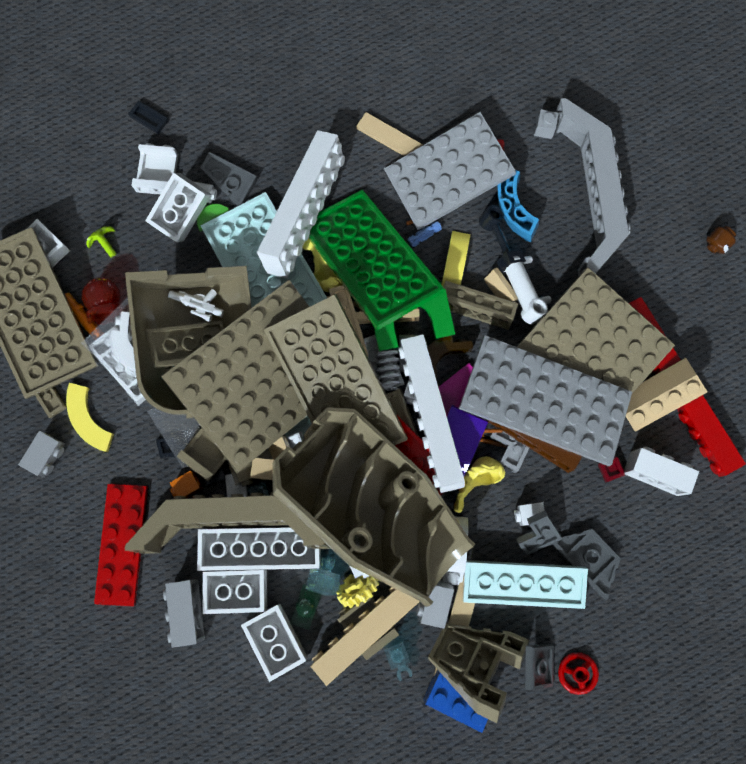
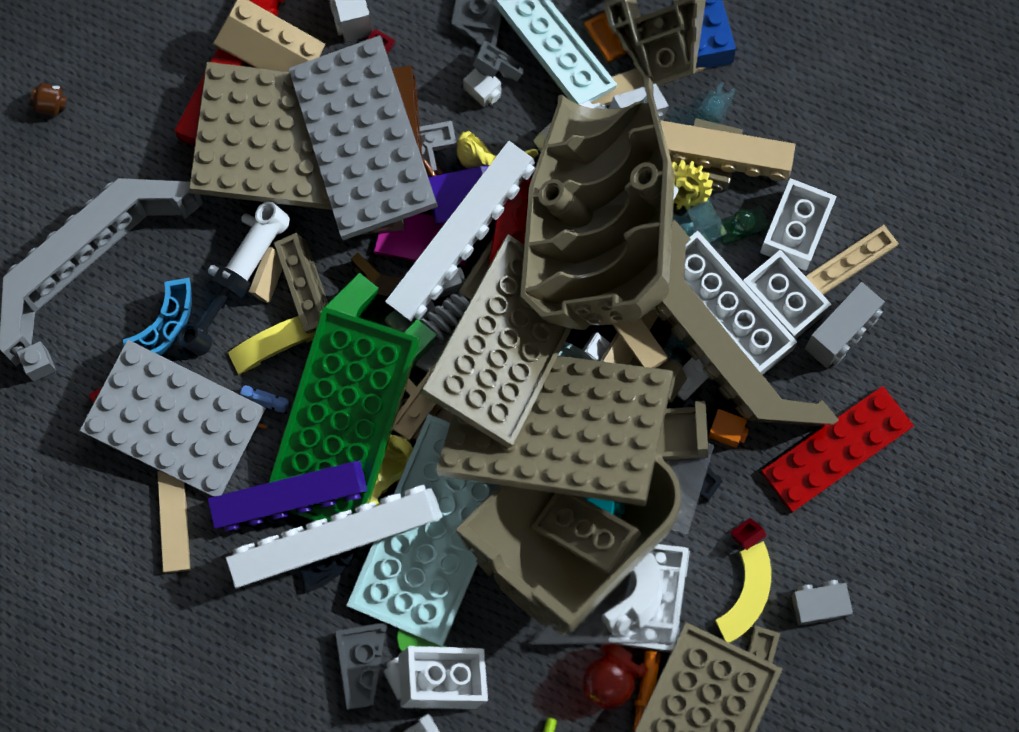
camera: 130 degrees left, 5 degrees down
(116, 445) = (748, 533): none -> dark red plate
(198, 302) = (530, 561): white piece -> none
(227, 659) = (852, 260): none -> tan tile
(350, 200) = (288, 494): none -> dark purple brick
(502, 623) = (604, 38): none -> orange tile

